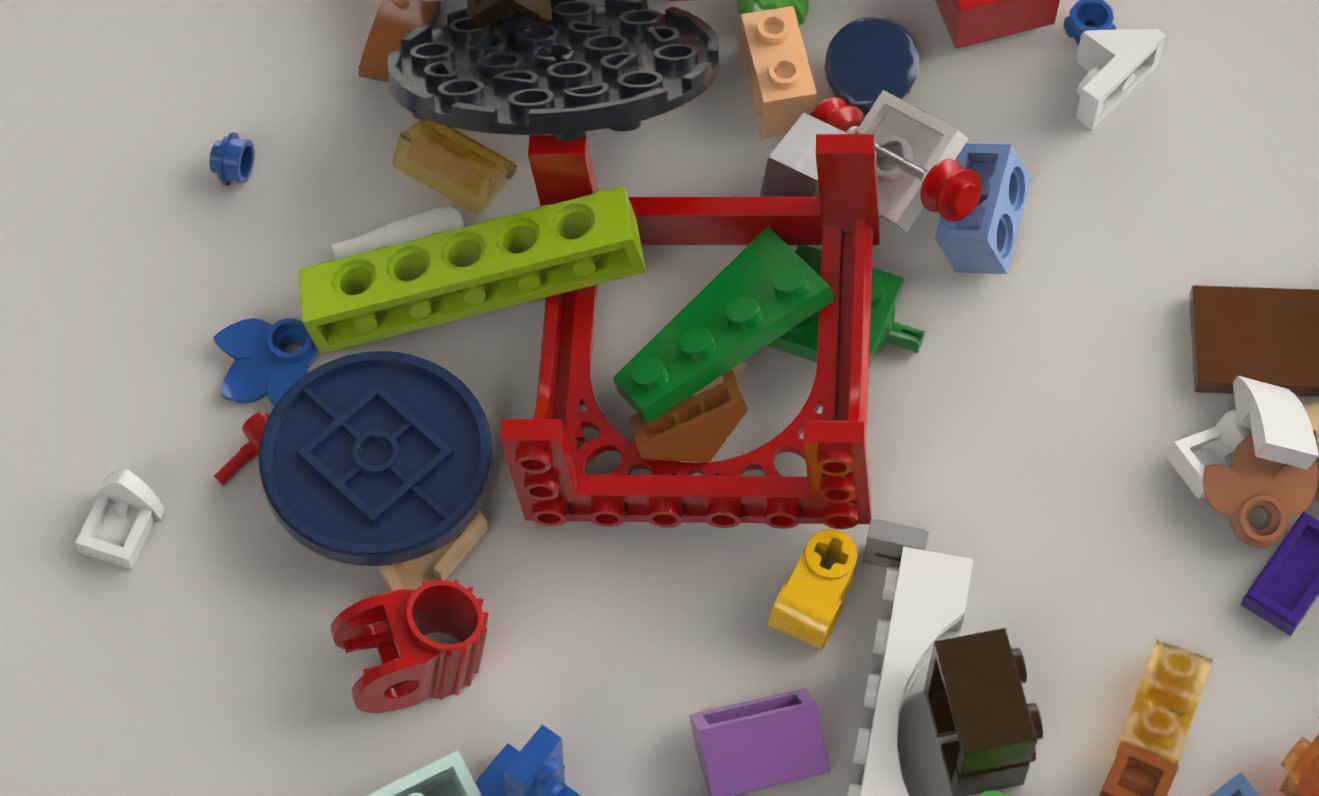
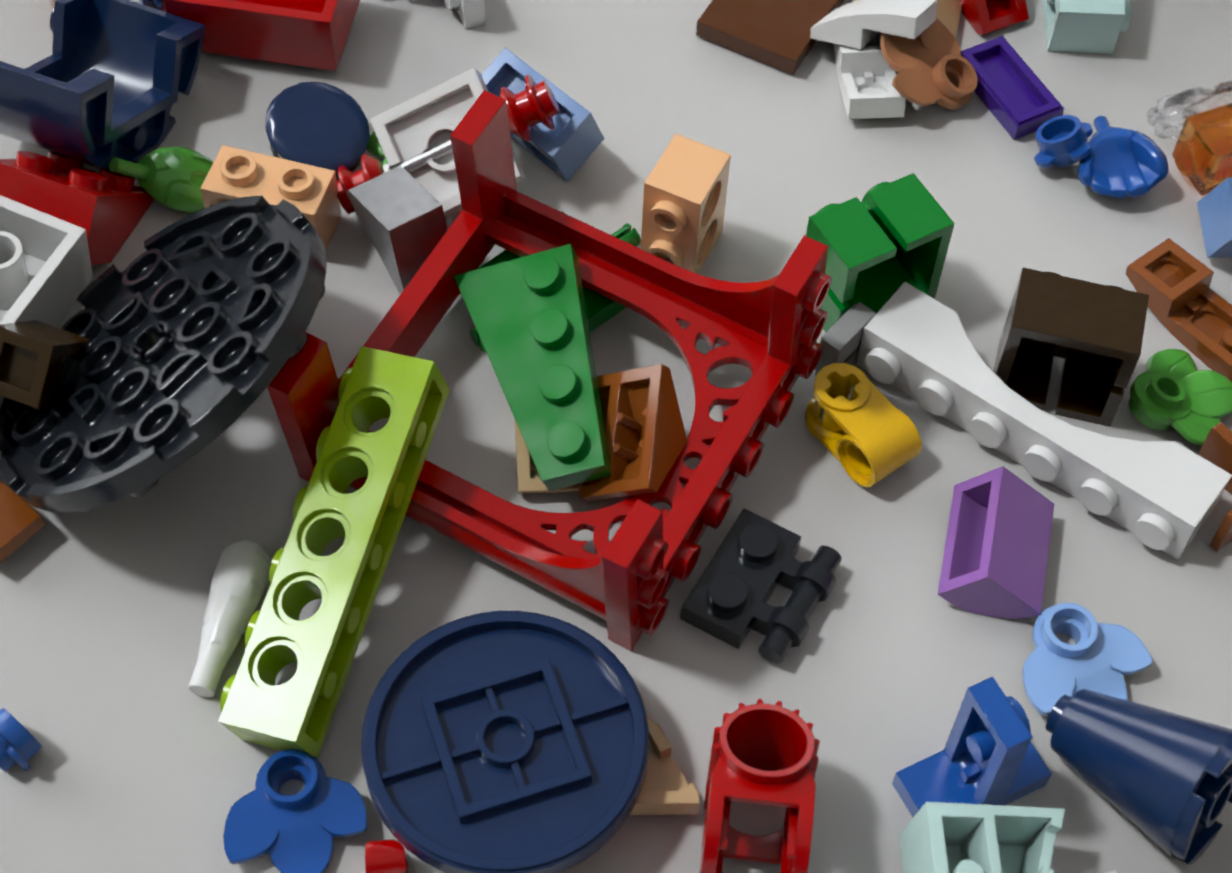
camera: 65 degrees left, 5 degrees down
(452, 164) = (166, 531): clear yellow slope -> none
(631, 569) = (743, 576): none -> black plate
(943, 358) = (685, 203): none -> light nougat brick
(988, 519) = (880, 244): none -> green piece
(1166, 701) = (1087, 227): clear yellow slope -> none
(1247, 638) = (1062, 141): none -> blue plate
(1254, 695) = (1122, 162): none -> blue piece

